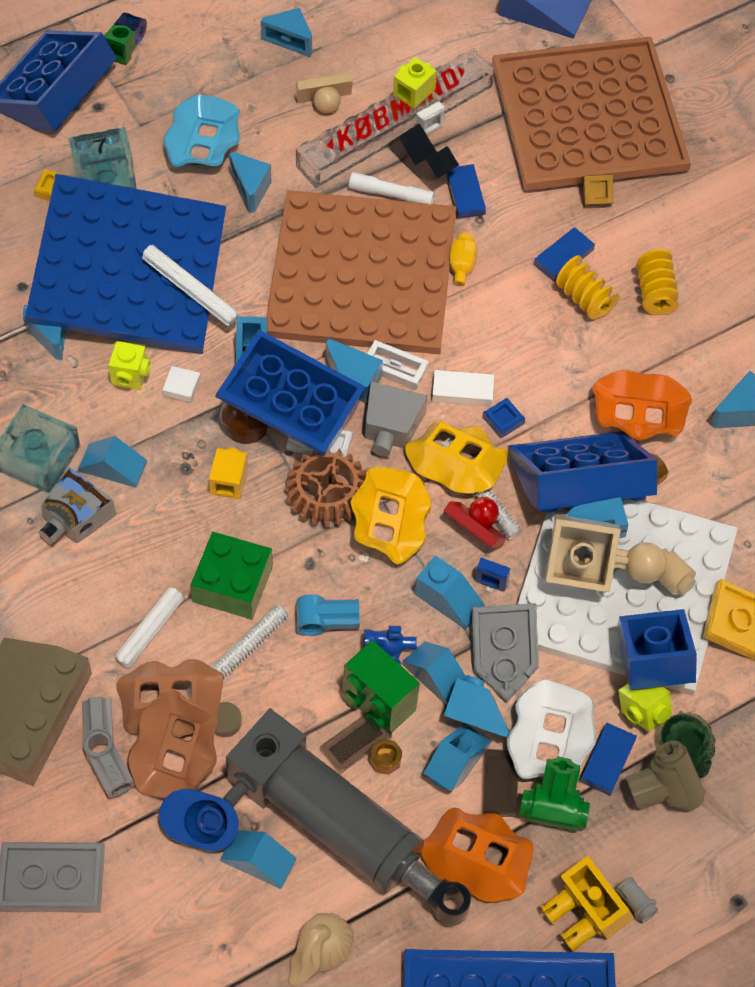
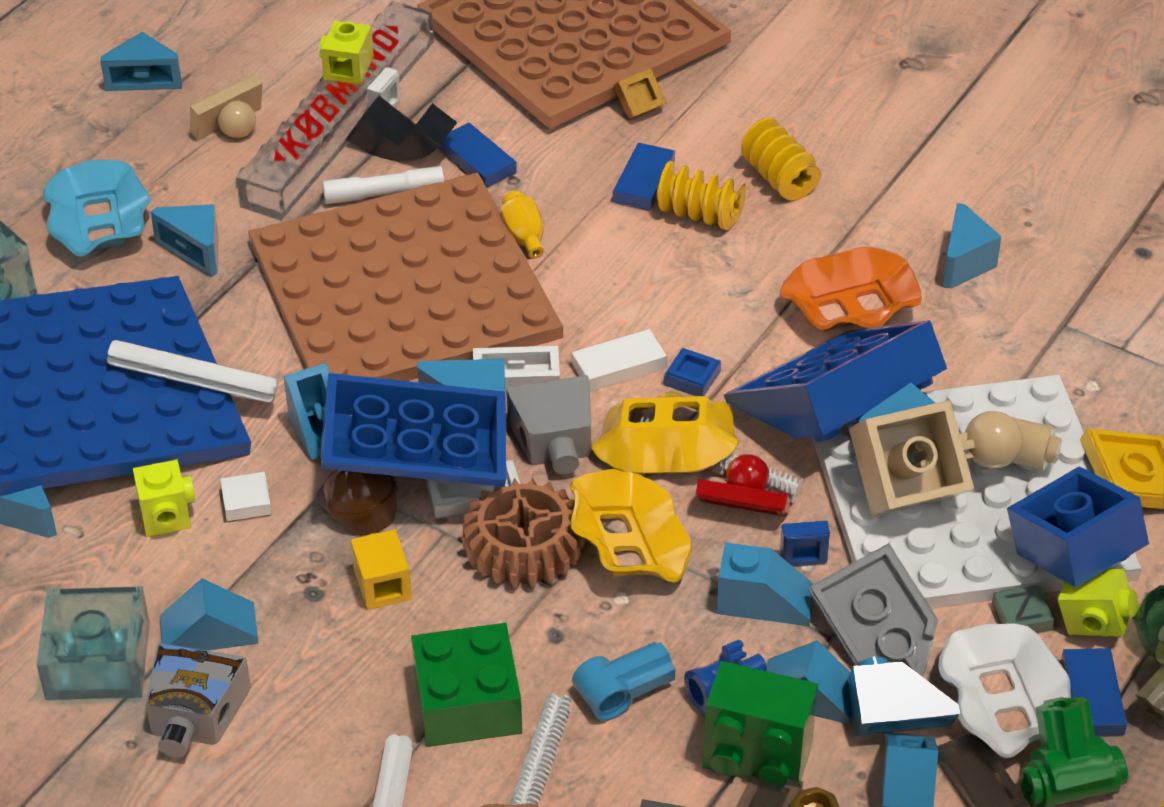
camera: 25 degrees left, 15 degrees down
(602, 683) = (1023, 607): none -> sand green tile

